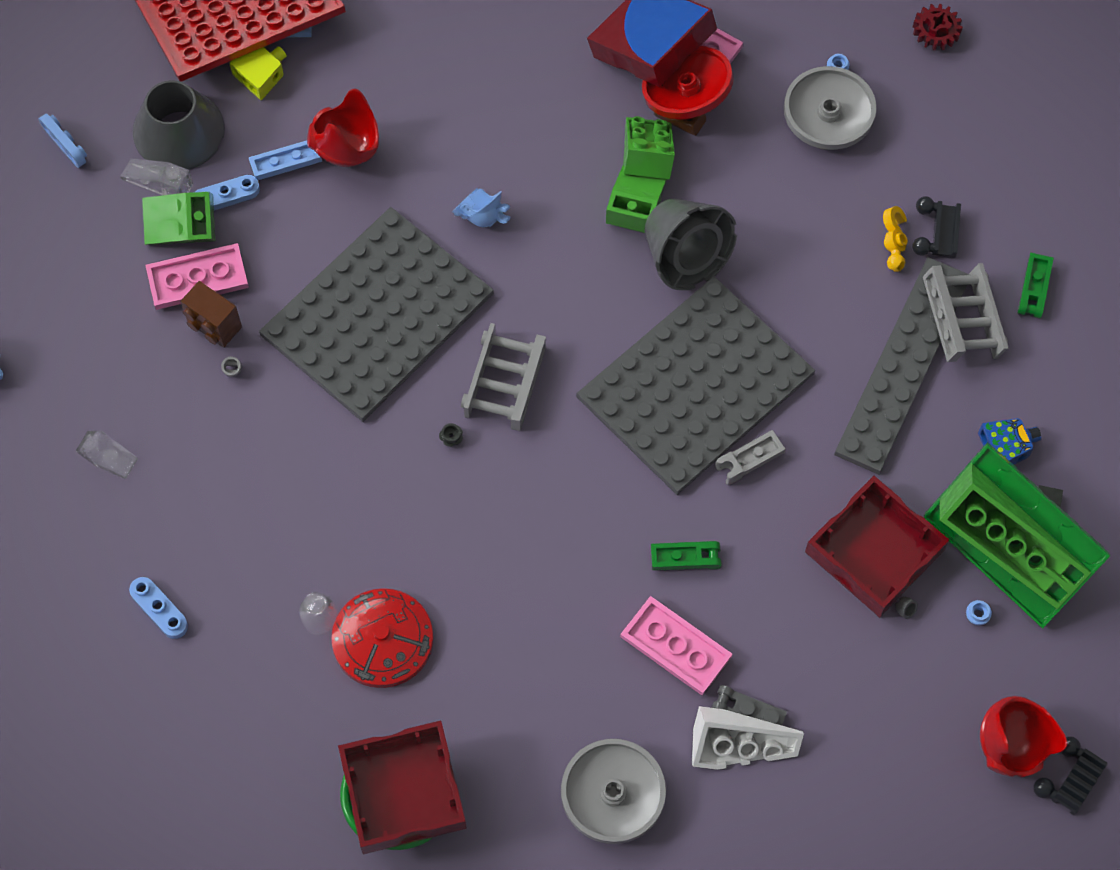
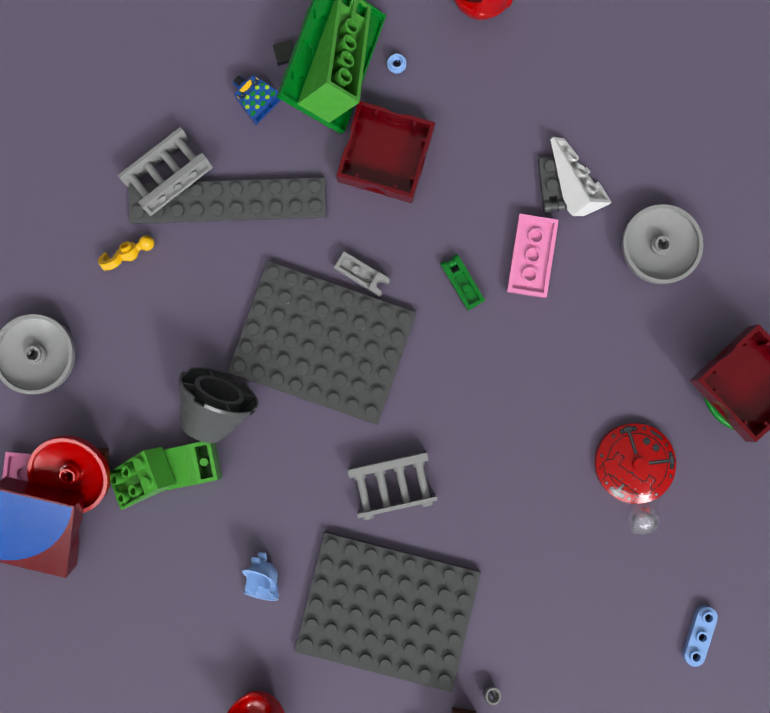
camera: 115 degrees left, 20 degrees up
(451, 429) = (458, 504): pearl dark grey plate -> none
(906, 607) = (419, 112): dark grey hinge -> none
(945, 228) = (96, 220): black gear -> none
(1035, 284) = (112, 133): green plate -> none

